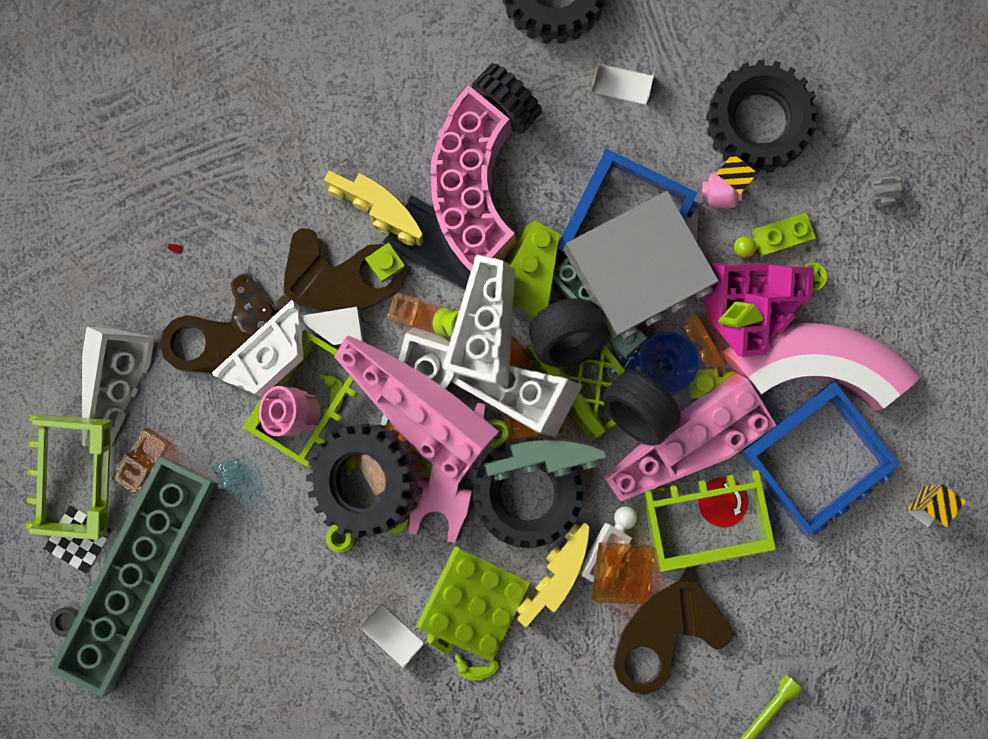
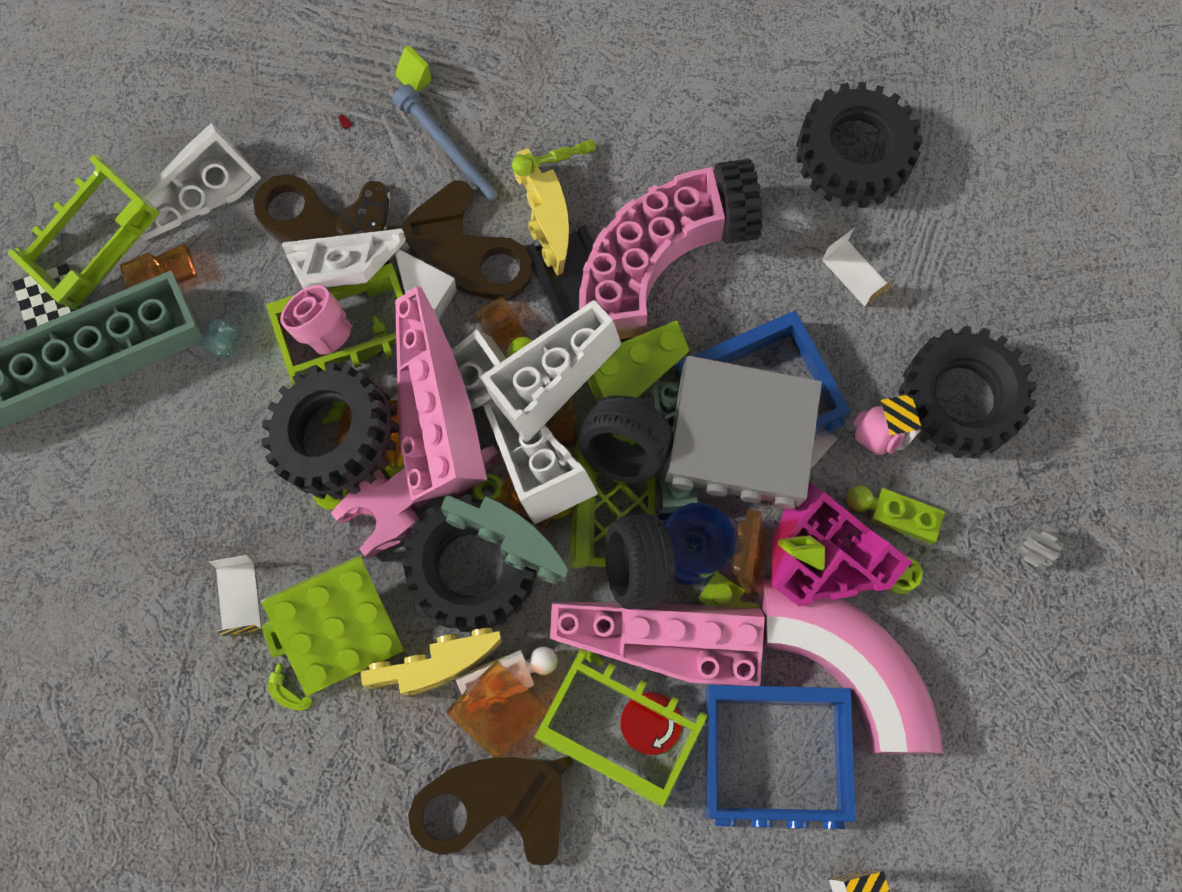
camera: 35 degrees right, 10 degrees down
(193, 172) = (413, 69): none -> lime slope
(209, 198) = (408, 100): none -> sand blue piece
(334, 545) = (258, 471): lime plate -> none
(340, 184) = (526, 164): none -> lime piece
(385, 262) = (512, 262): lime plate -> none

